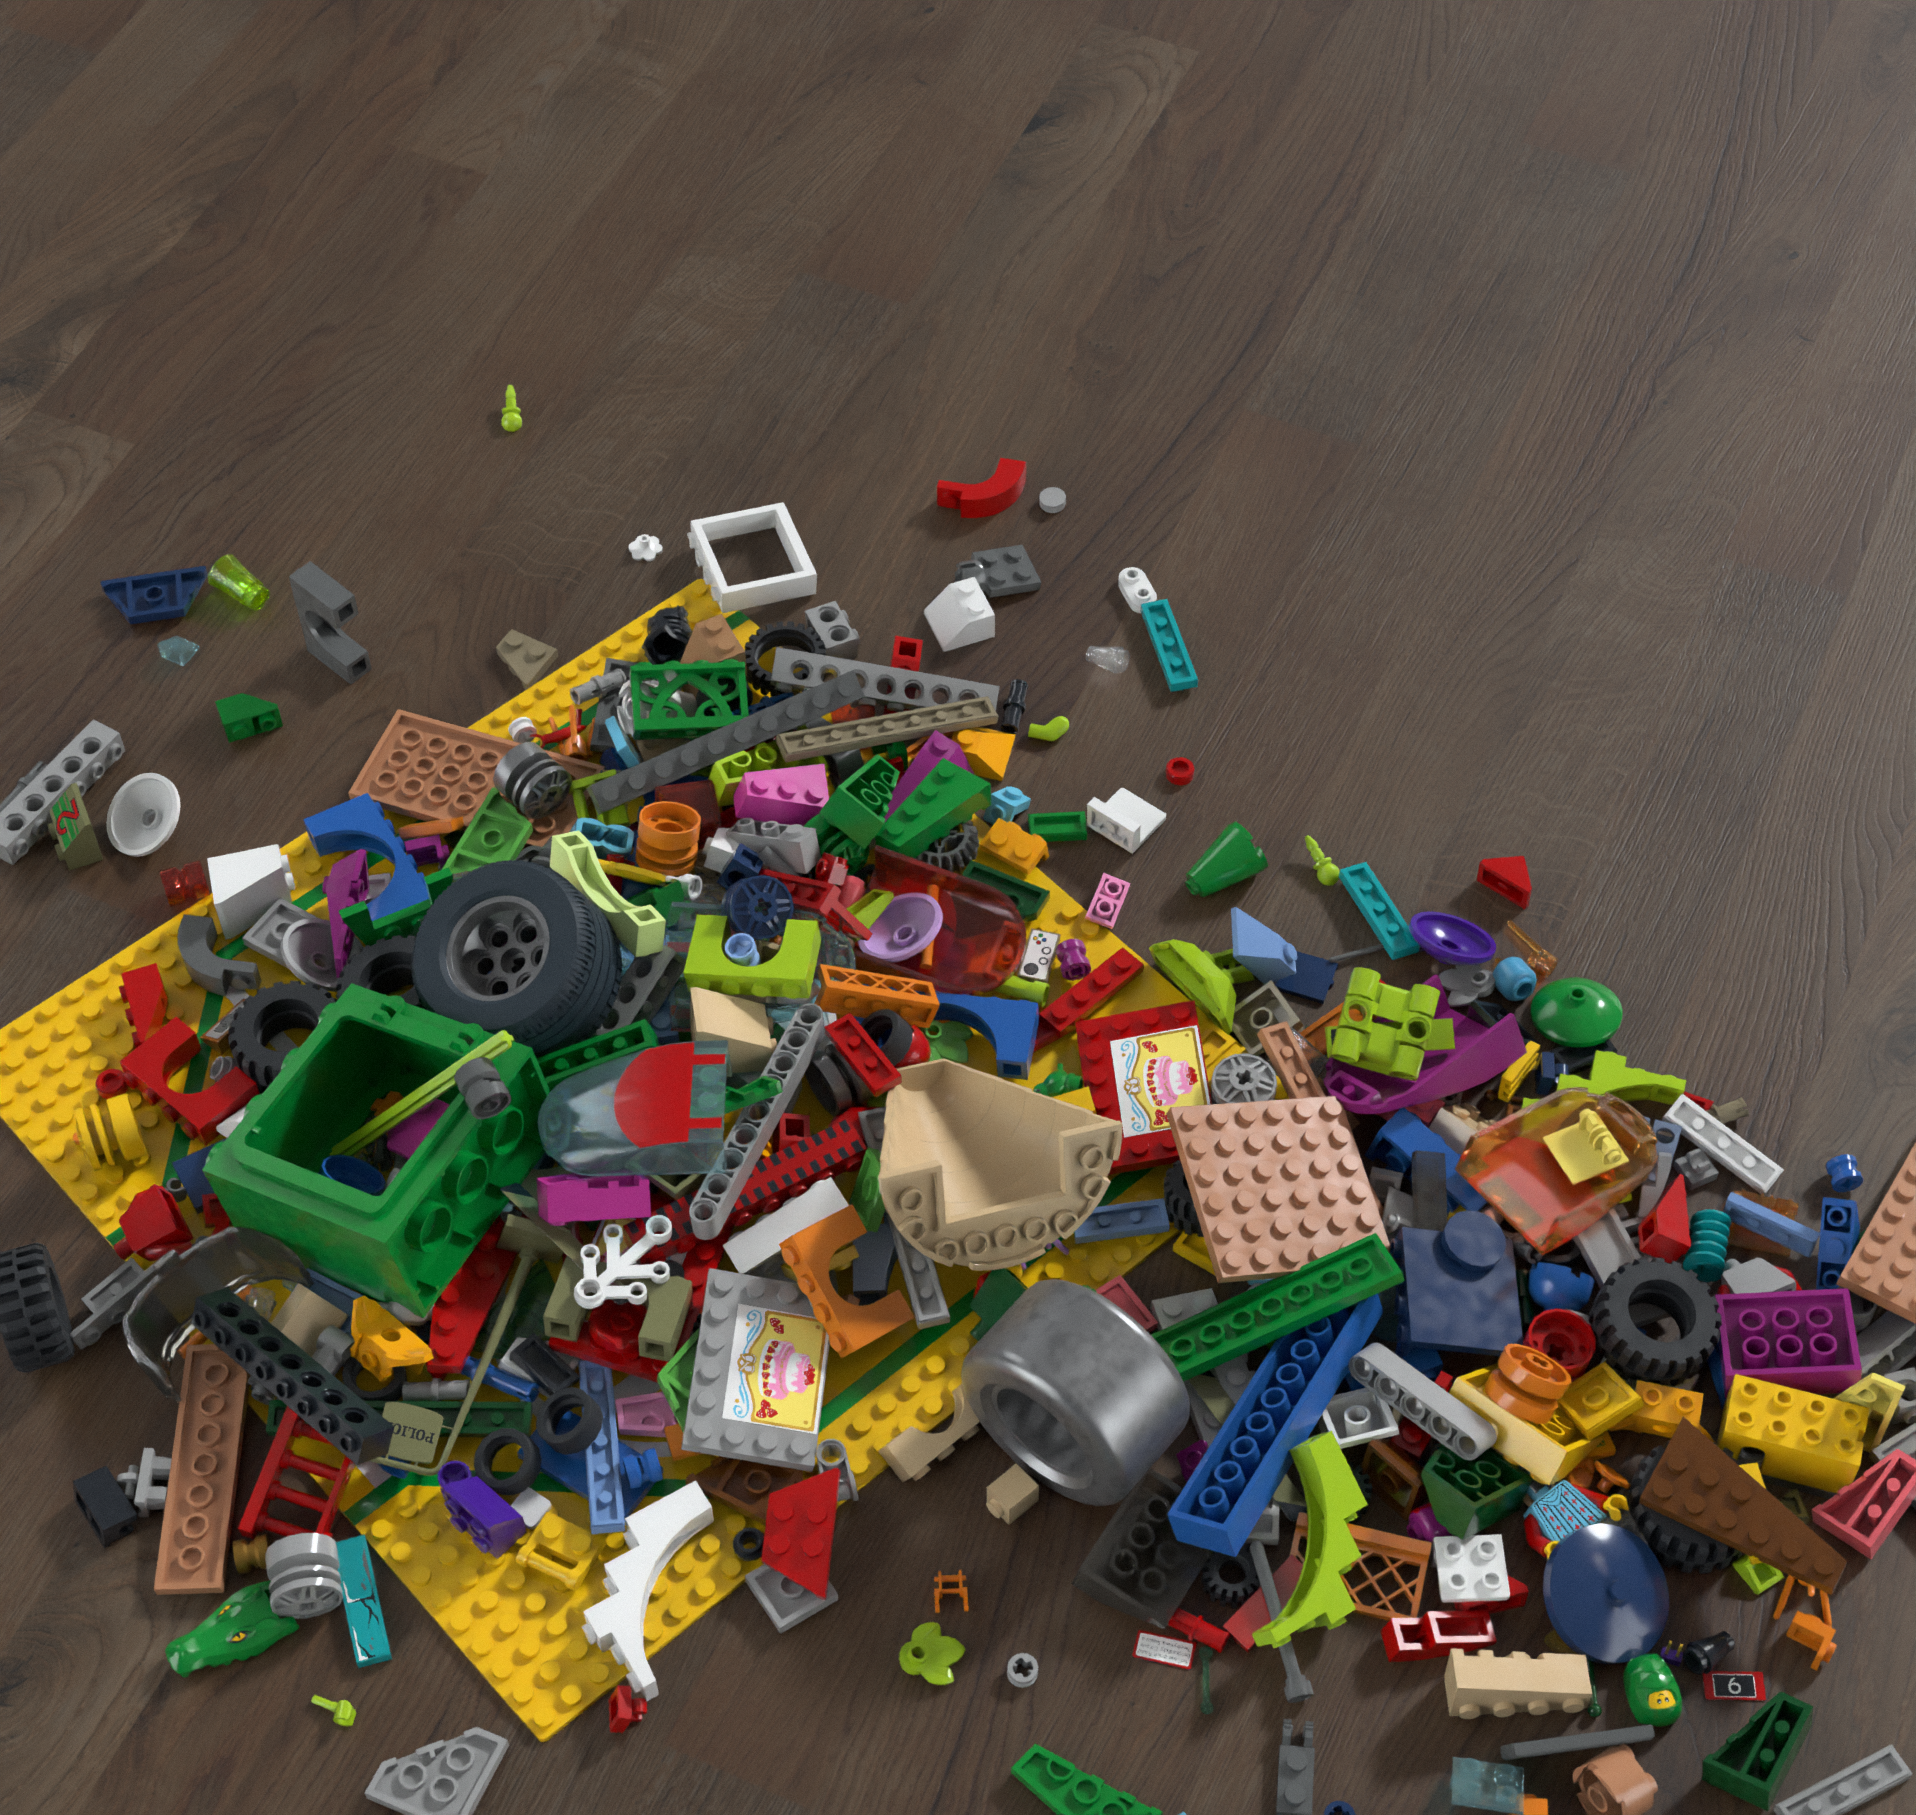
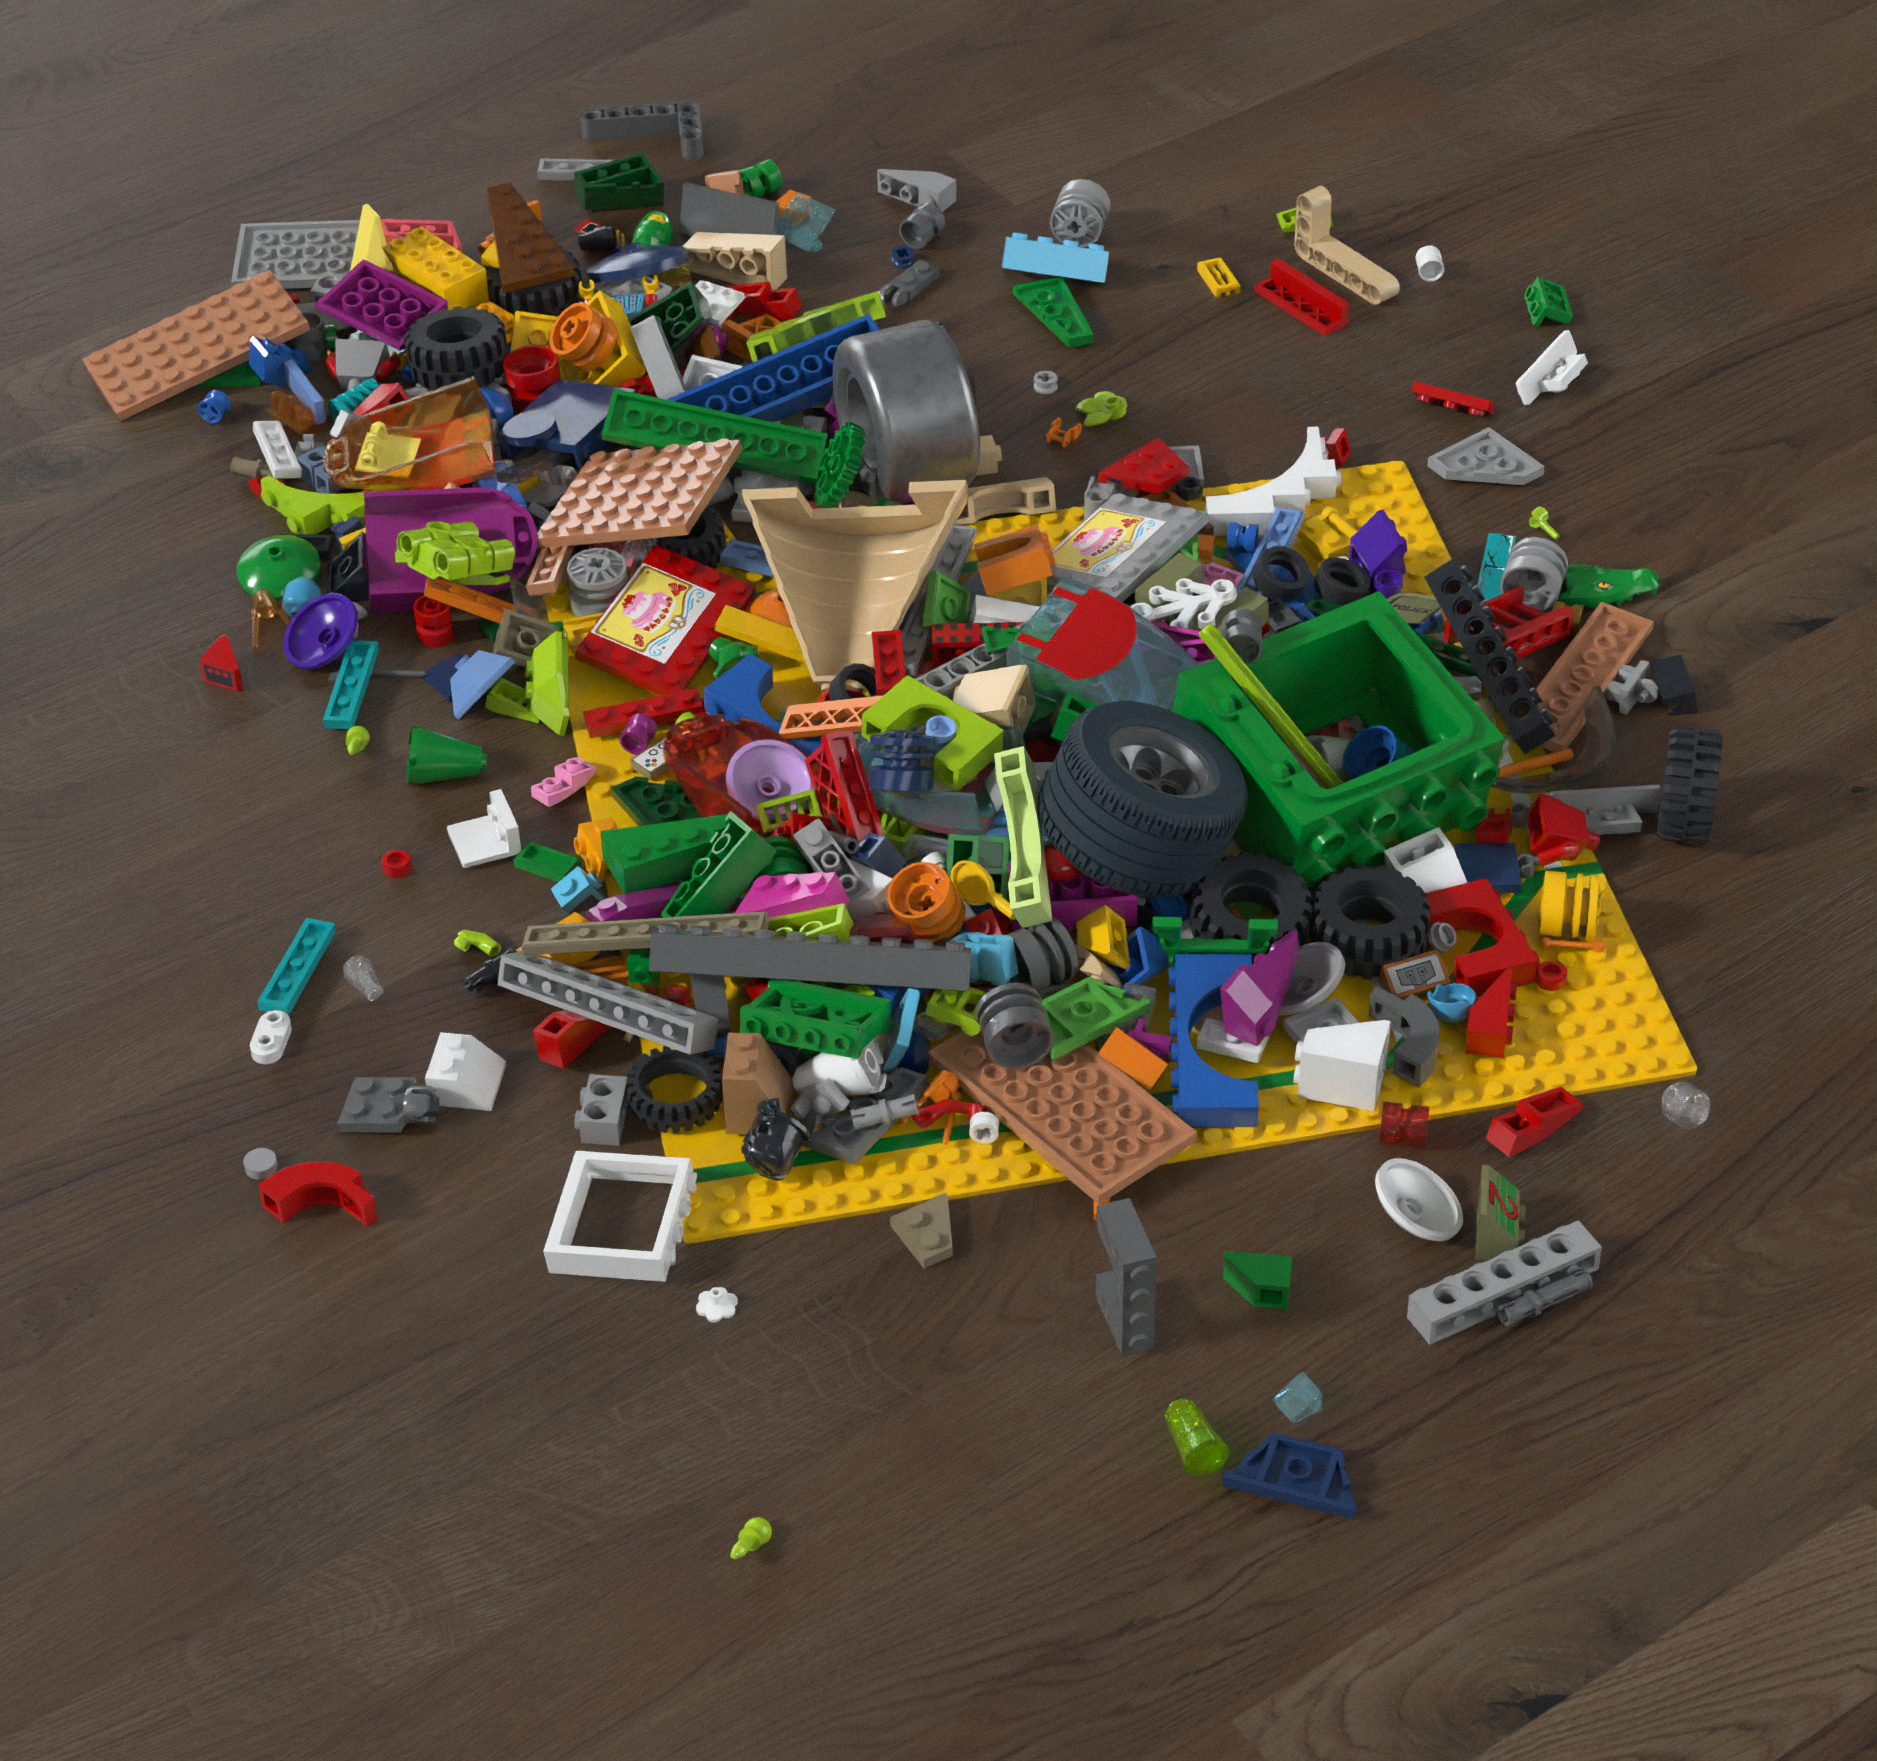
camera: 150 degrees left, 10 degrees down
(79, 942) = (1533, 1120): none -> red slope
(185, 999) = (1452, 1002): none -> dark azure hair

